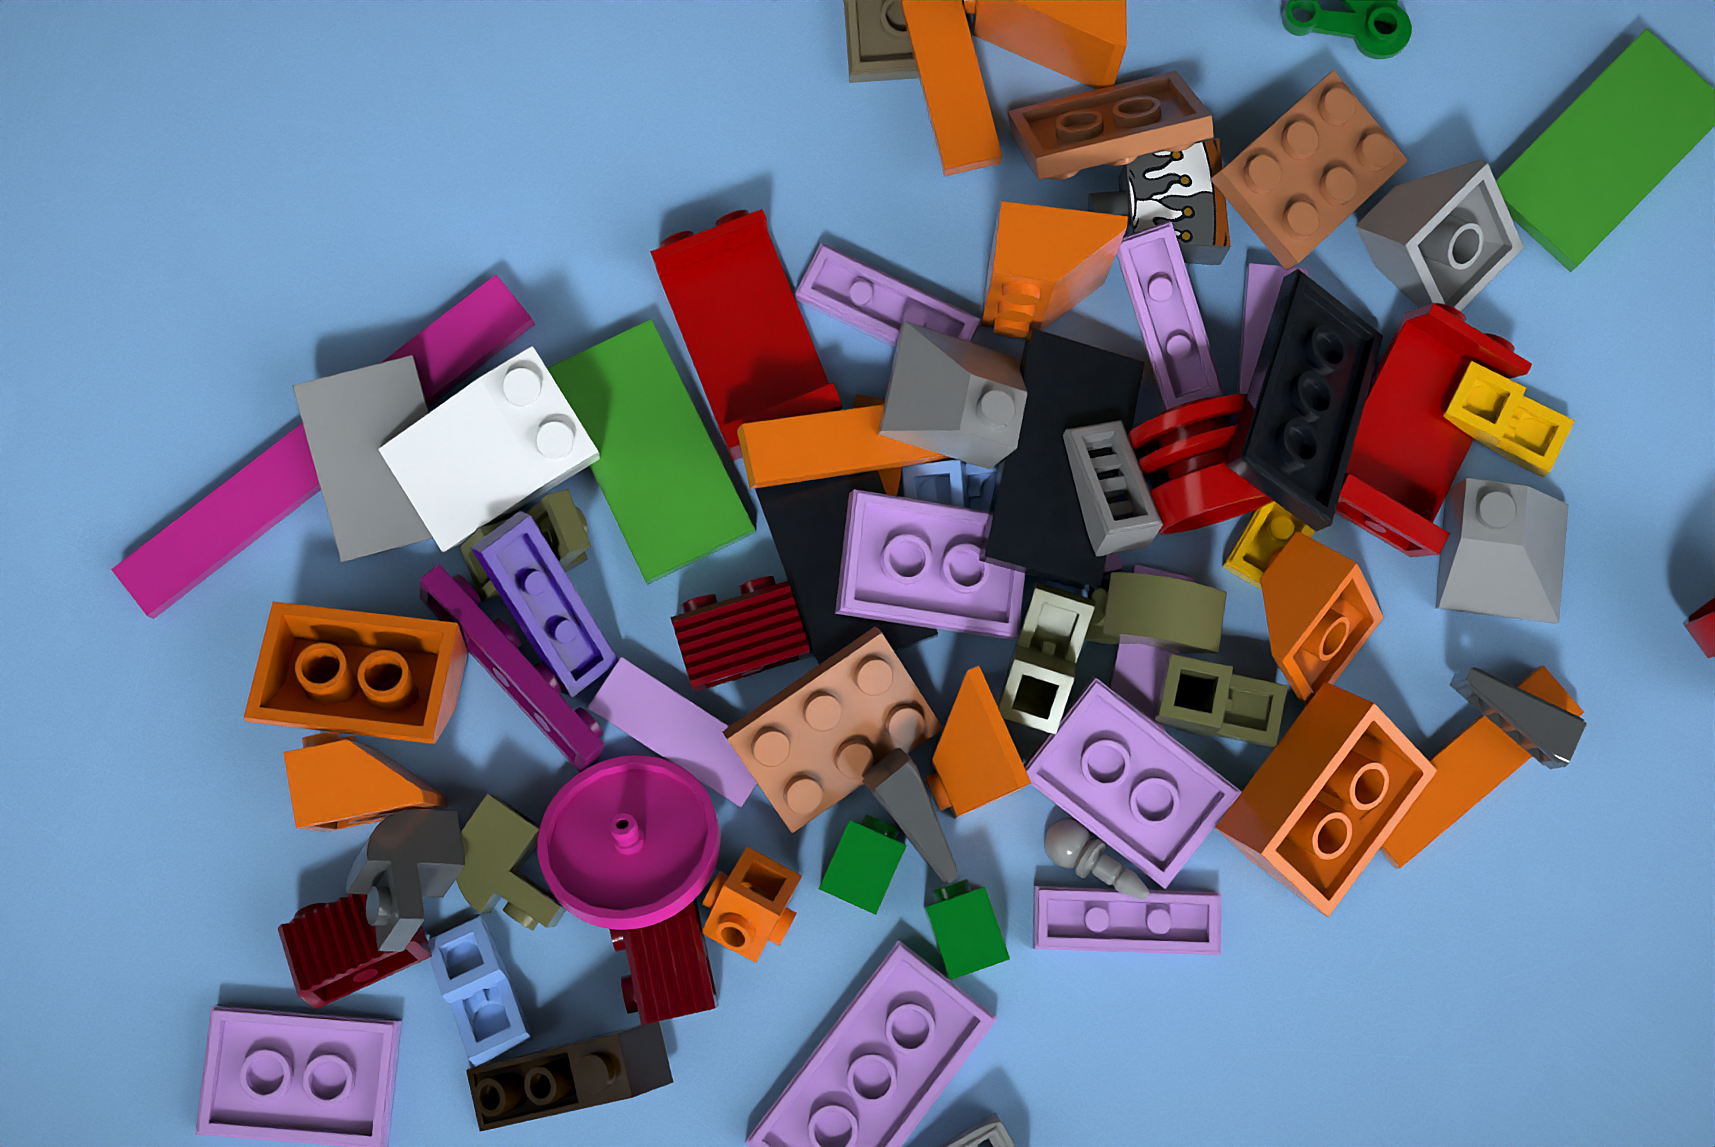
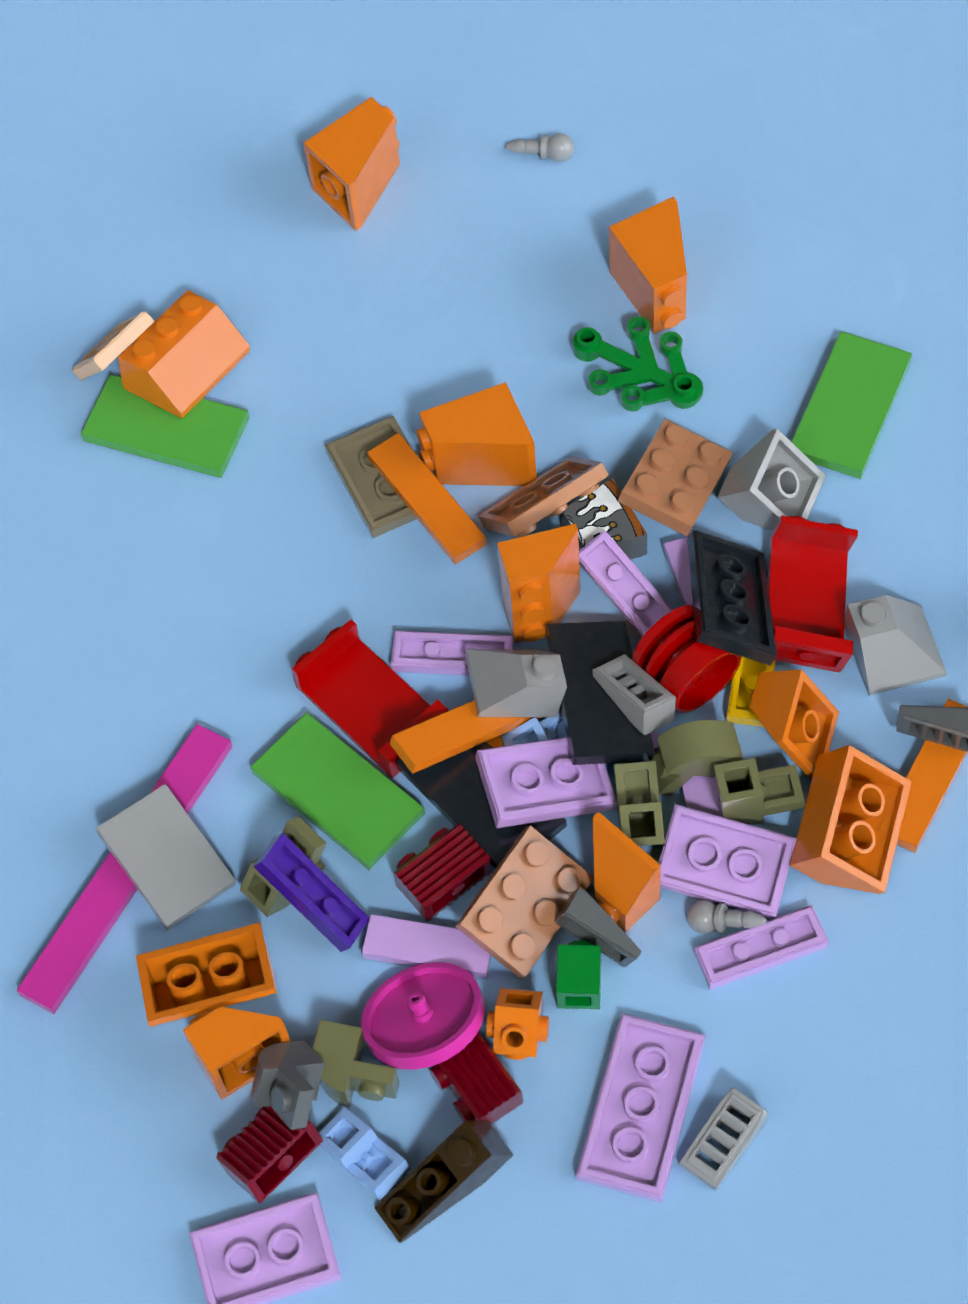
camera: 15 degrees left, 20 degrees down
(489, 450) = (238, 816): white slope -> none
(529, 686) = (308, 949): magenta plate -> none
(965, 929) = (661, 988): green brick -> none
(1507, 421) = (860, 573): yellow slope -> none

